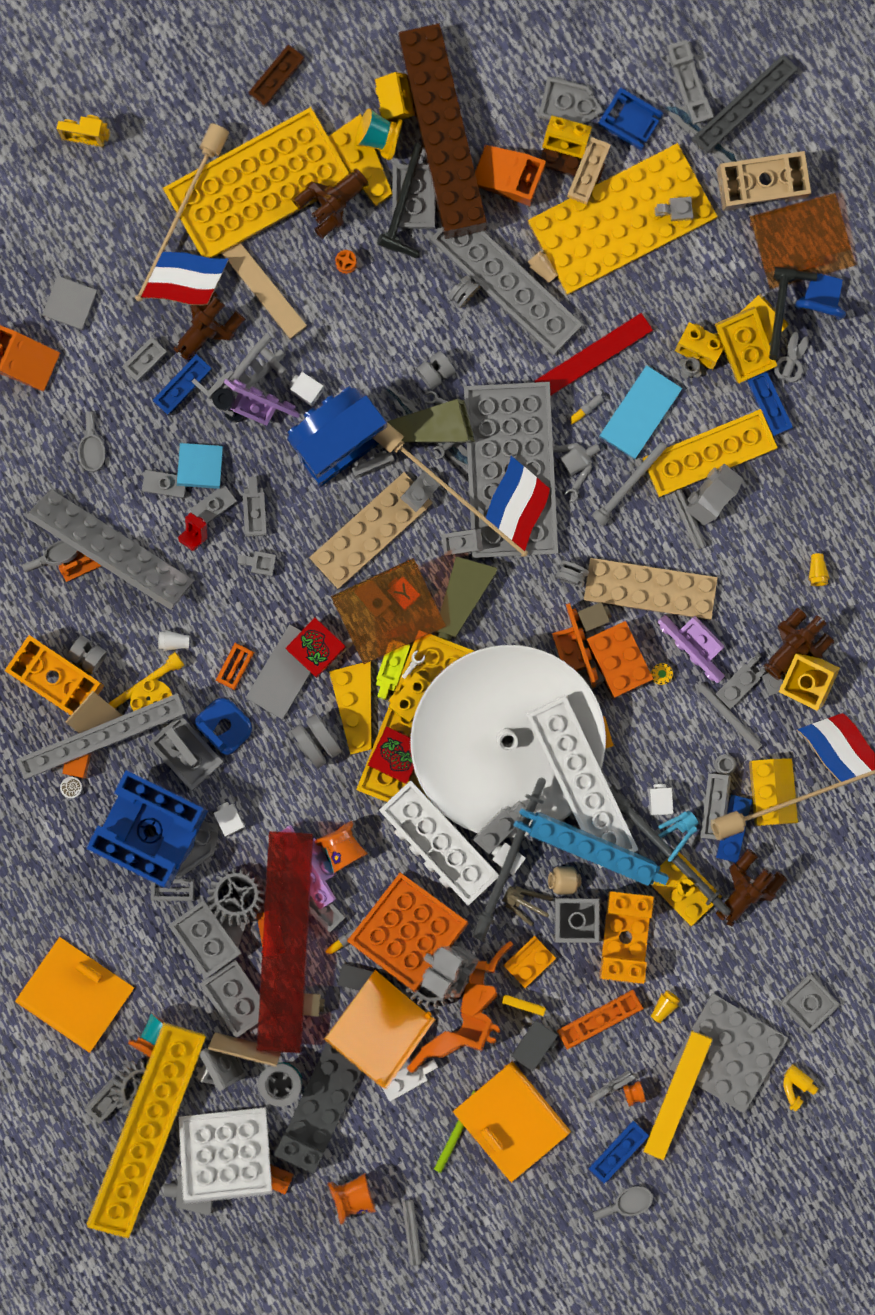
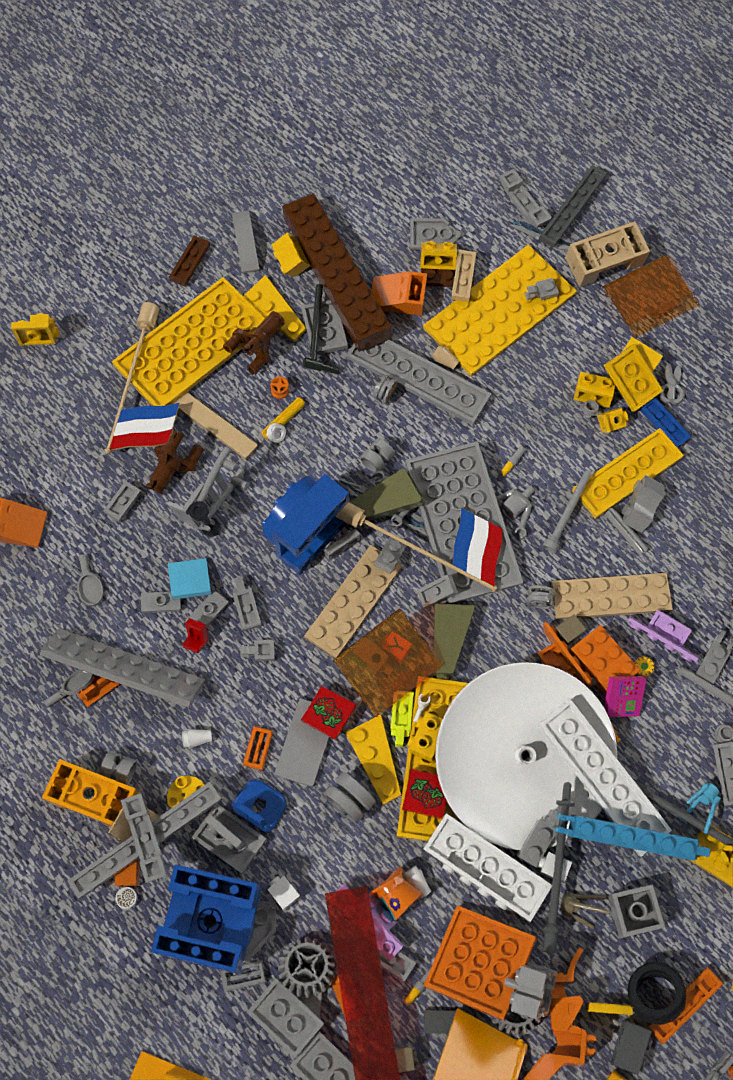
camera: 15 degrees left, 15 degrees down
(69, 303) = (48, 470): light grey tile -> none
(100, 736) = (144, 837): none -> light grey slope
(173, 663) = (199, 759): yellow piece -> none
(181, 385) = (159, 516): blue plate -> none
(255, 405) = (227, 513): lavender bracket -> none
(306, 388) = (267, 493): white brick -> none
(330, 316) = (276, 432): none -> white tile
(342, 299) = (286, 415): none -> yellow axle
(346, 62) = (245, 241): none -> light grey slope
(366, 839) = (416, 878): none -> white cone
(378, 133) = (284, 282): hat -> none
(529, 961) = (601, 964): light orange plate -> none
(564, 880) = (612, 876): tan head -> none
(568, 980) = (663, 971): none -> black tyre
(596, 353) = (510, 414): red tile -> none
(627, 960) = (679, 894): light orange plate -> none
(628, 702) = (624, 696): none -> dark pink tile
(634, 120) = (489, 236): blue container -> none
(640, 412) = (559, 454): medium azure tile -> none
(660, 800) = (678, 779): white brick -> none
(705, 382) = (606, 420): none -> yellow brick
(784, 276) = (647, 322): pearl dark grey bar -> none
(823, 296) = (682, 330): blue piece -> none

